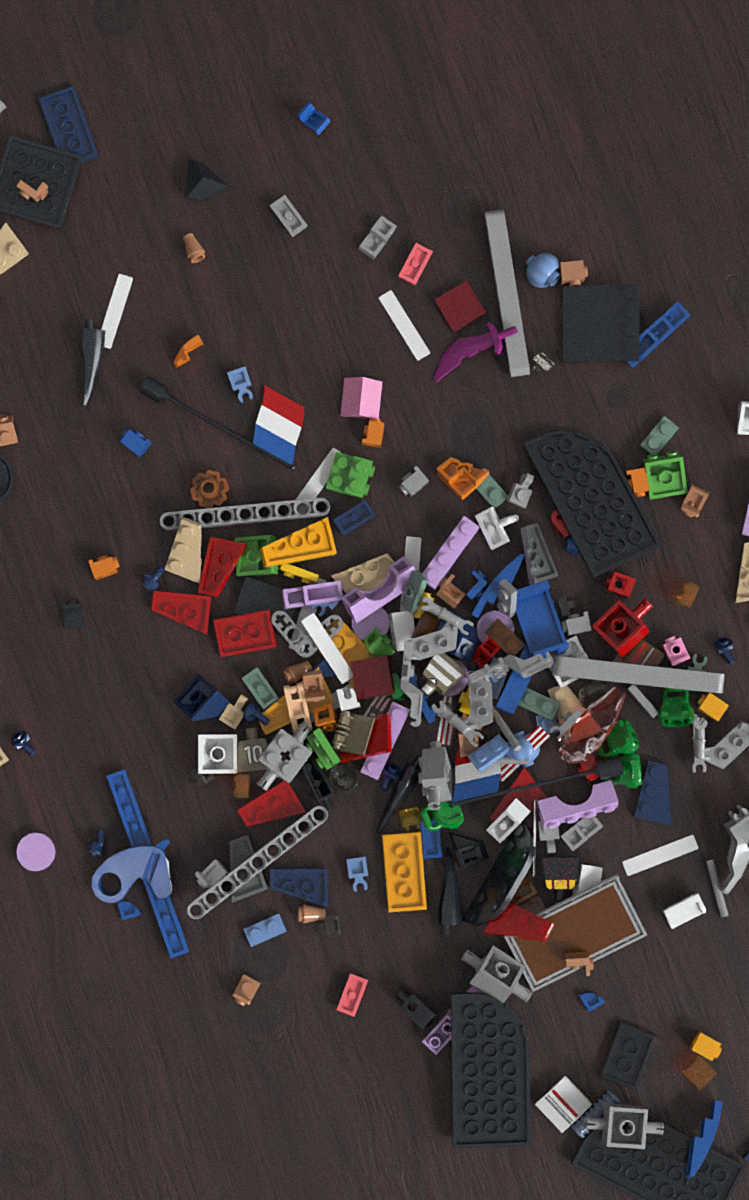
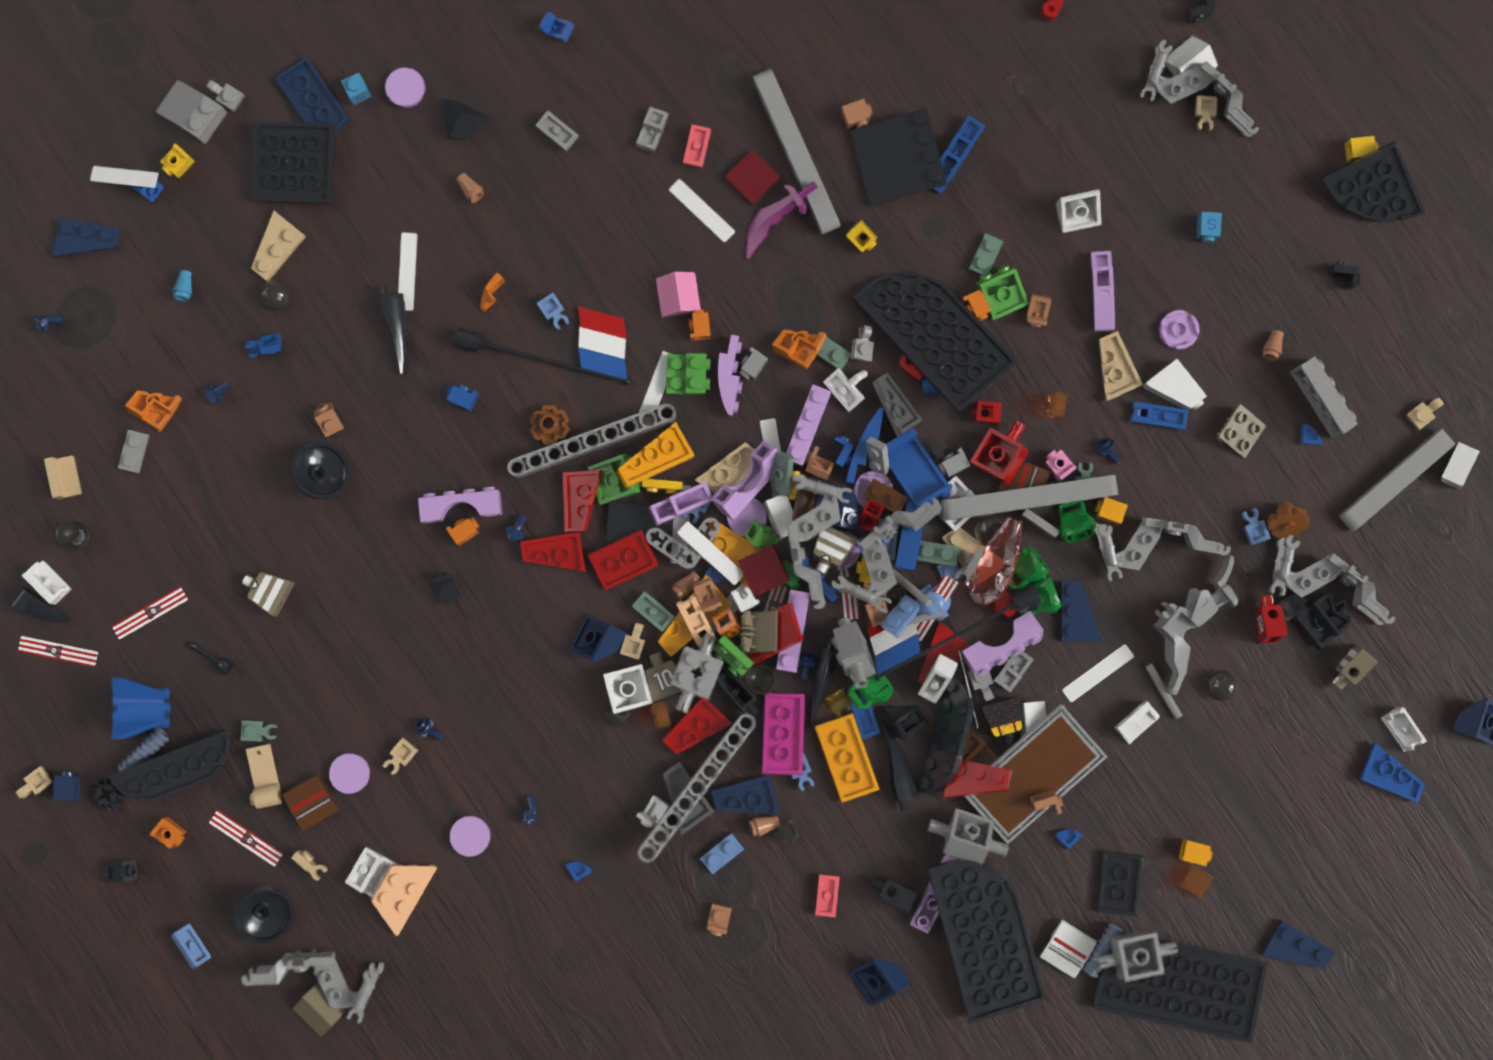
camera: 20 degrees left, 0 degrees up
(28, 192) = (288, 173): nougat bracket -> none
(82, 539) = (434, 508): none -> lavender arch
(112, 128) = (356, 88): none -> dark azure brick
(130, 864) = (567, 824): animal -> none
(139, 836) = (586, 818): blue plate -> none
(157, 138) = (405, 87): none -> lavender tile
(186, 551) = (542, 493): tan wing -> none
(253, 712) = (652, 637): dark blue plate -> none
(351, 834) = (783, 734): none -> dark pink tile
(354, 518) = (702, 415): dark blue plate -> none
(379, 1085) = (879, 980): none -> dark blue slope
(387, 495) = (728, 383): none -> lavender slope
(540, 387) = (854, 236): none -> yellow brick
(543, 270) = (826, 119): medium blue plant -> none
(543, 362) = (850, 211): clear smoke tile -> none
(700, 1145) = (1218, 954): blue slope -> none

